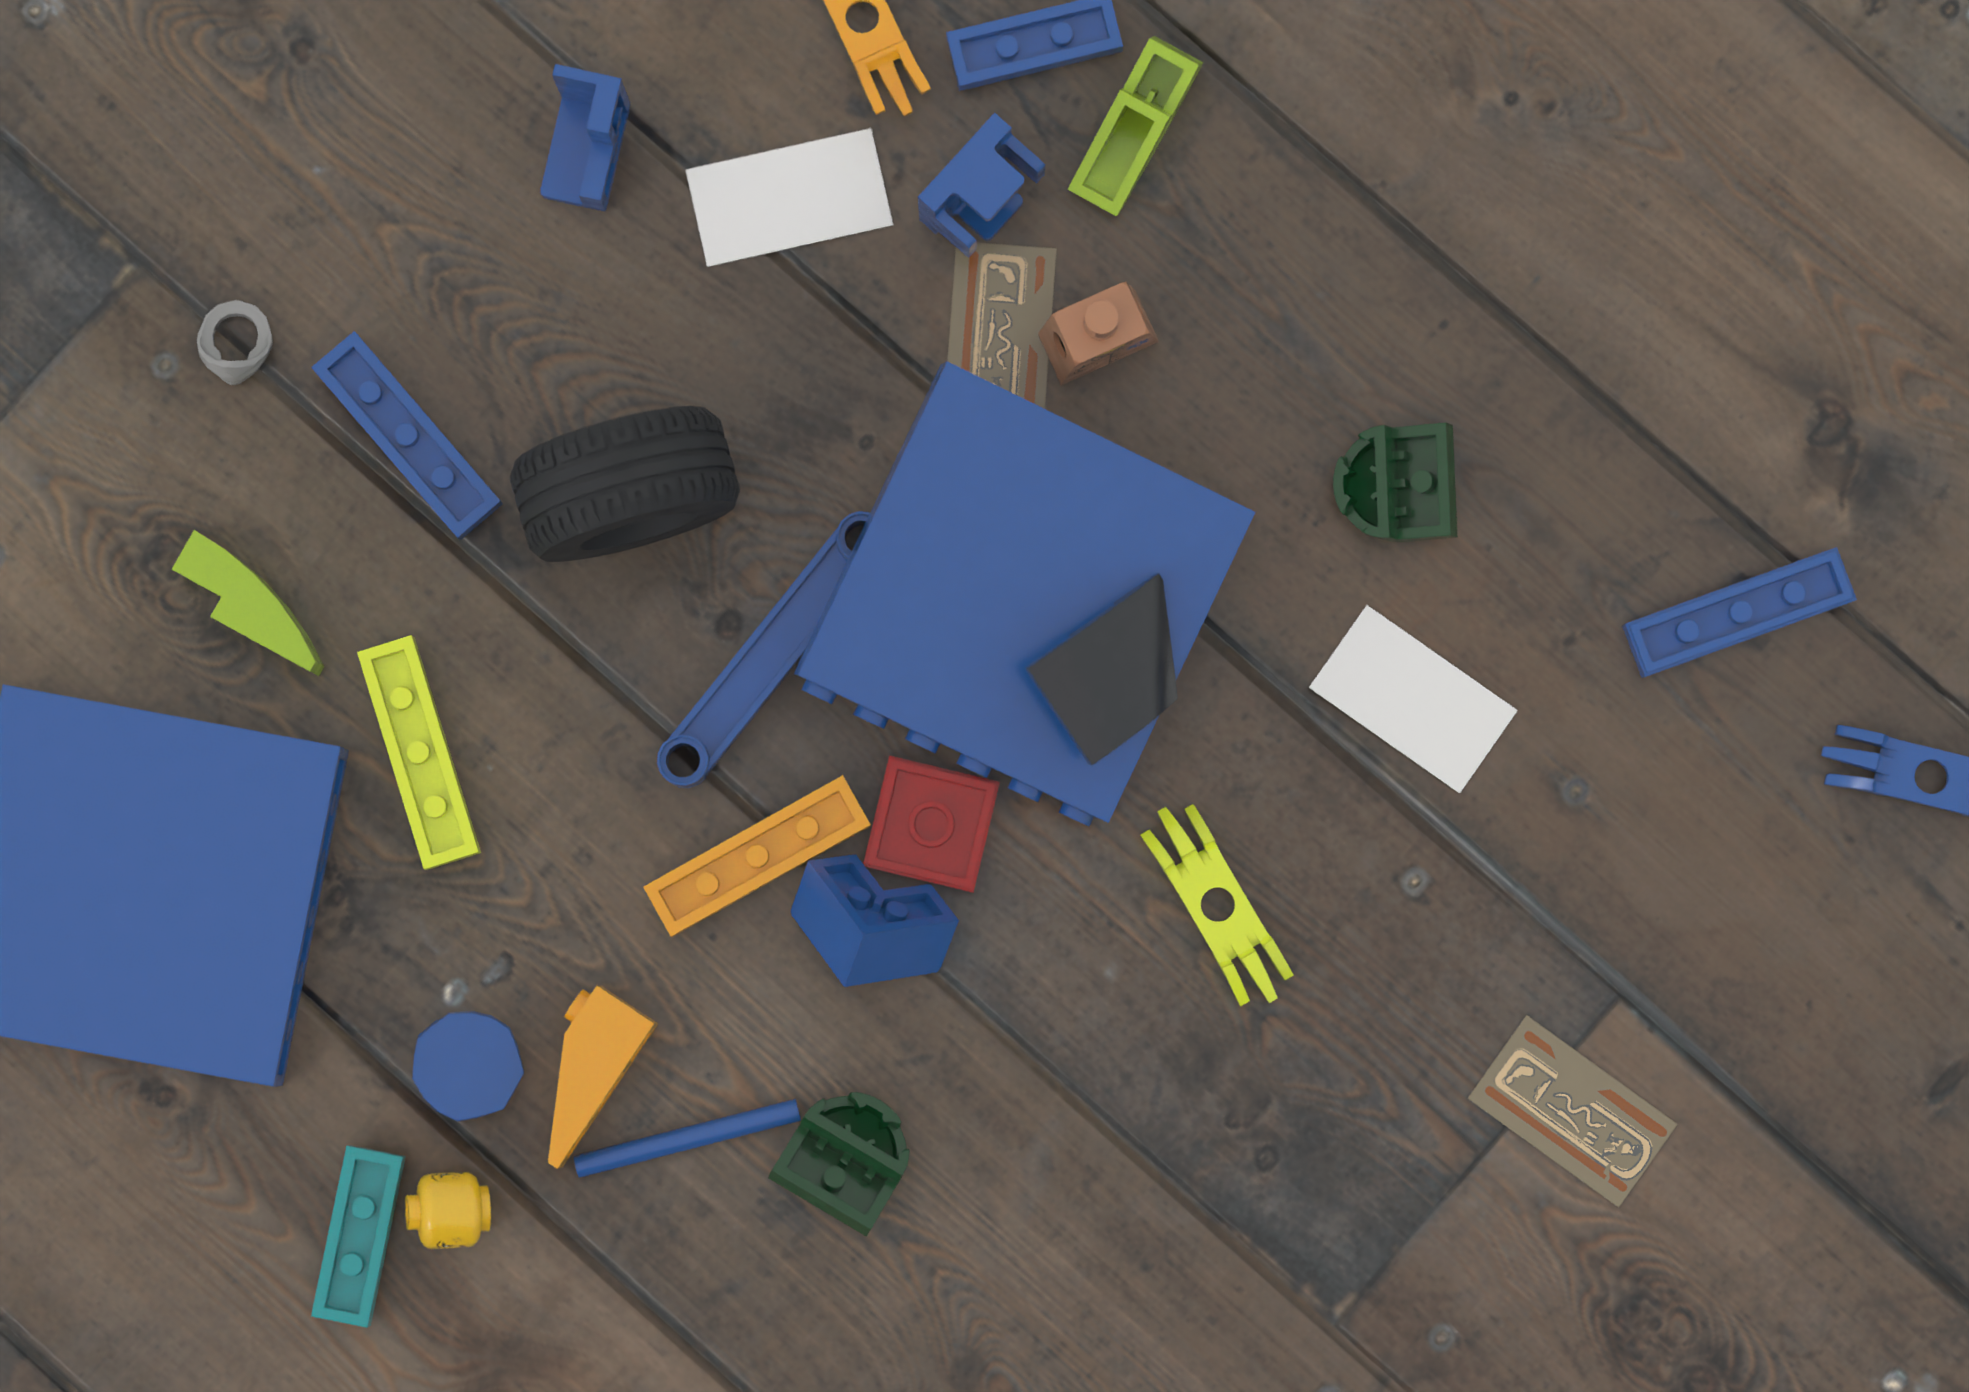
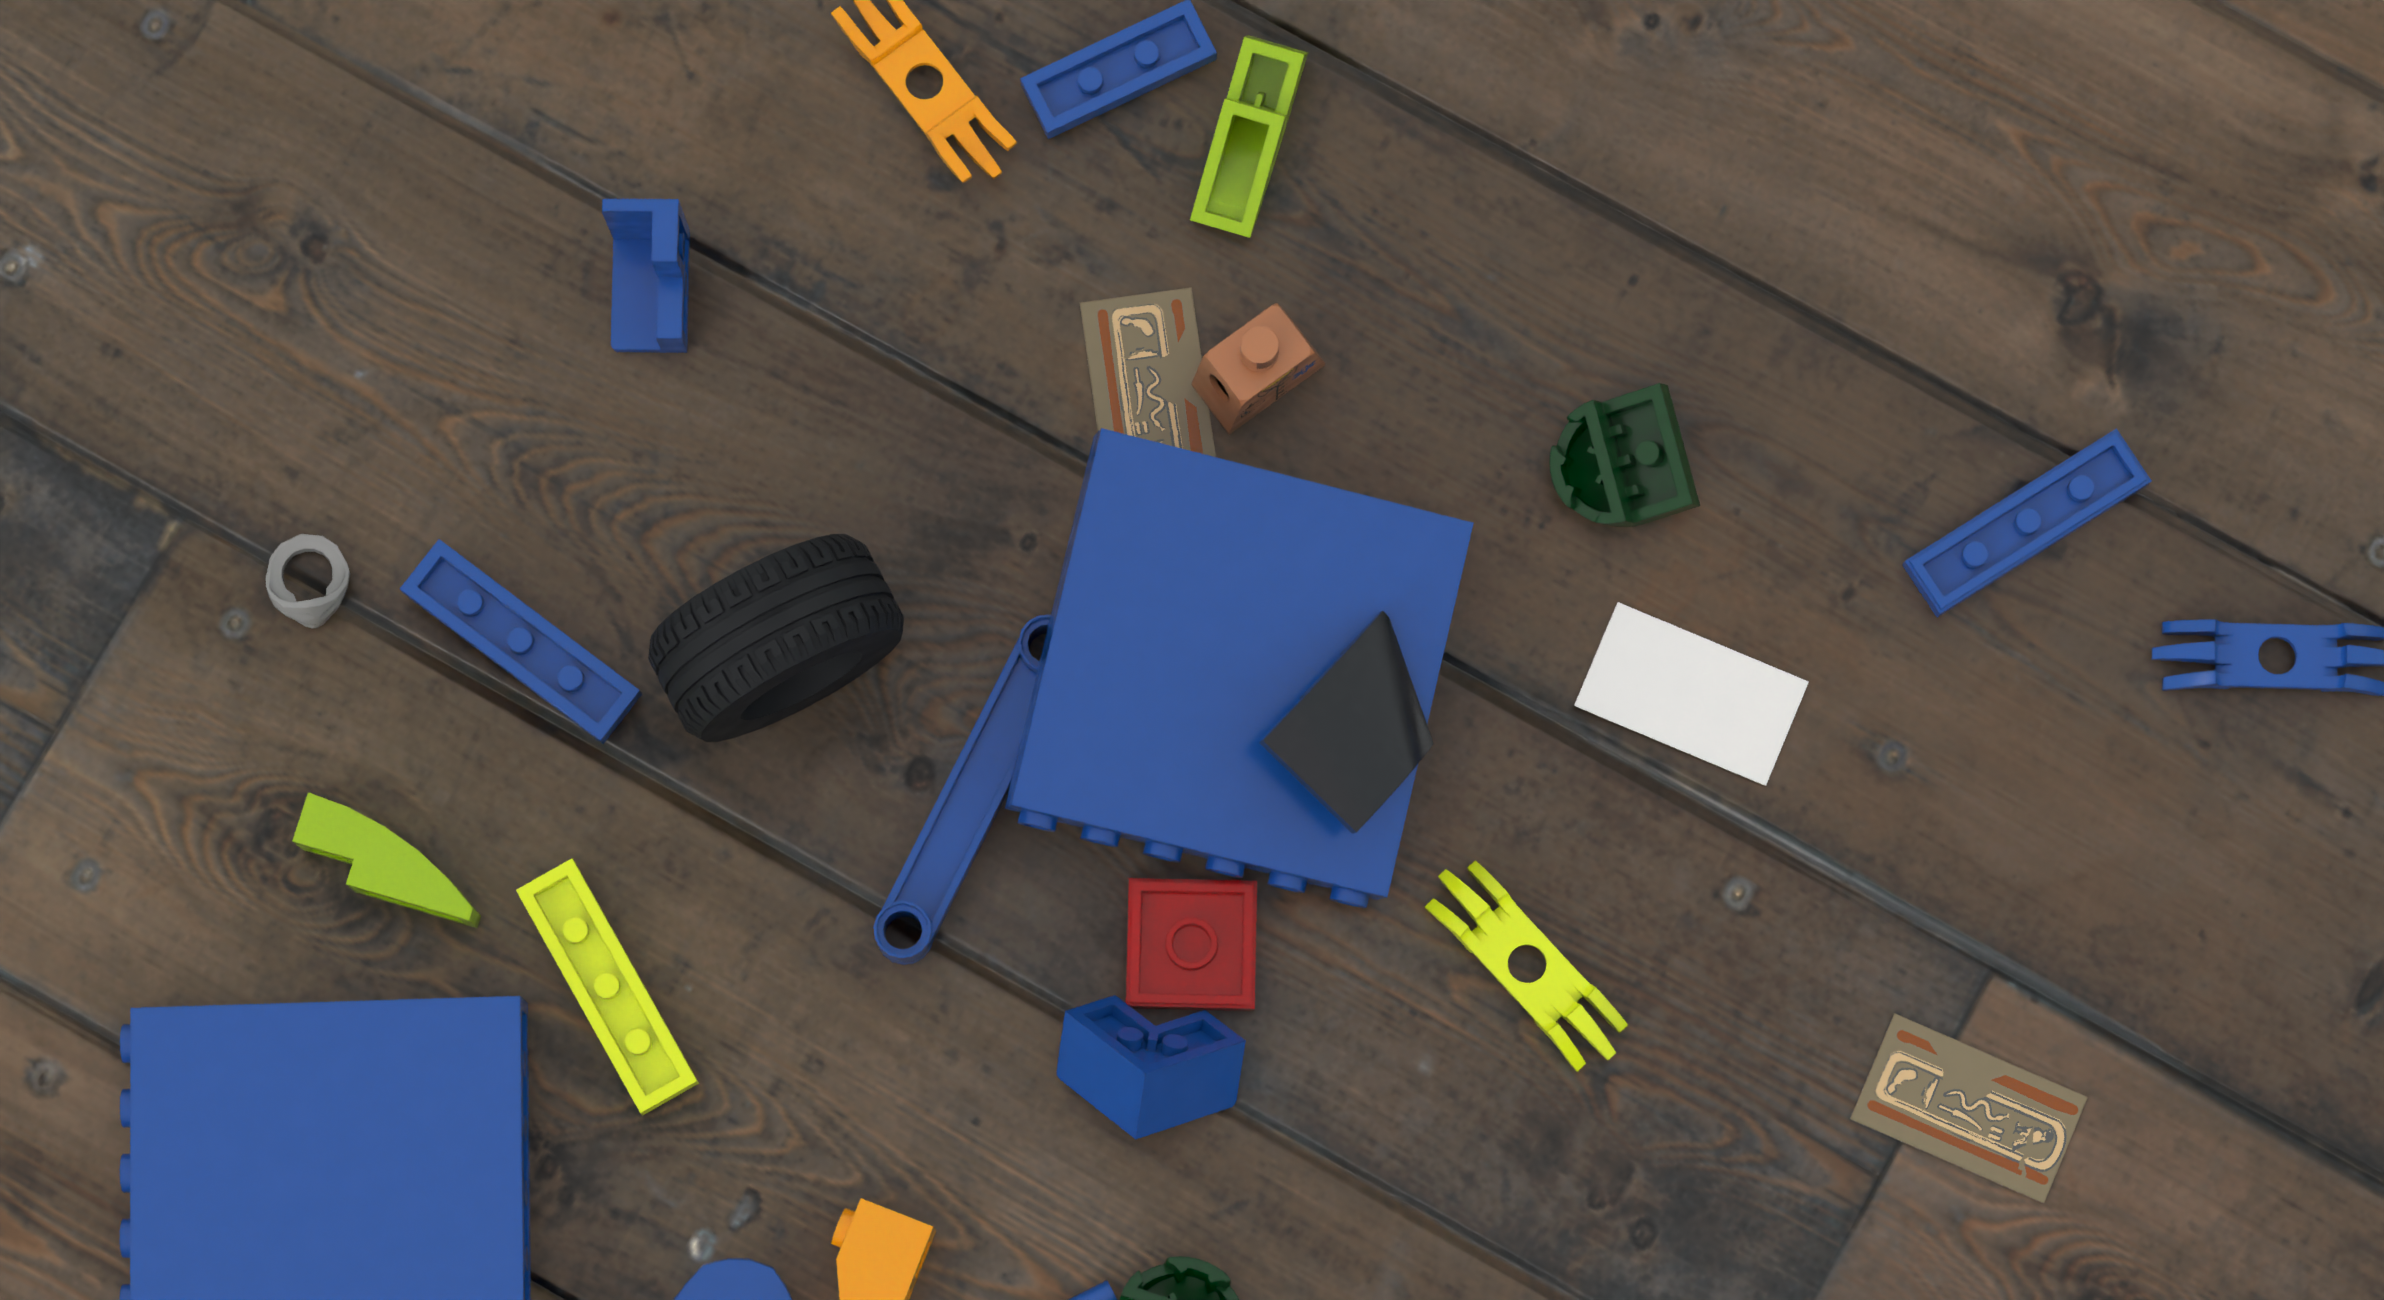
camera: 10 degrees left, 5 degrees down
(757, 856) = (1006, 1020): light orange plate -> none
(789, 197) = (885, 294): white sticker -> none
(979, 186) = (1093, 236): blue panel -> none

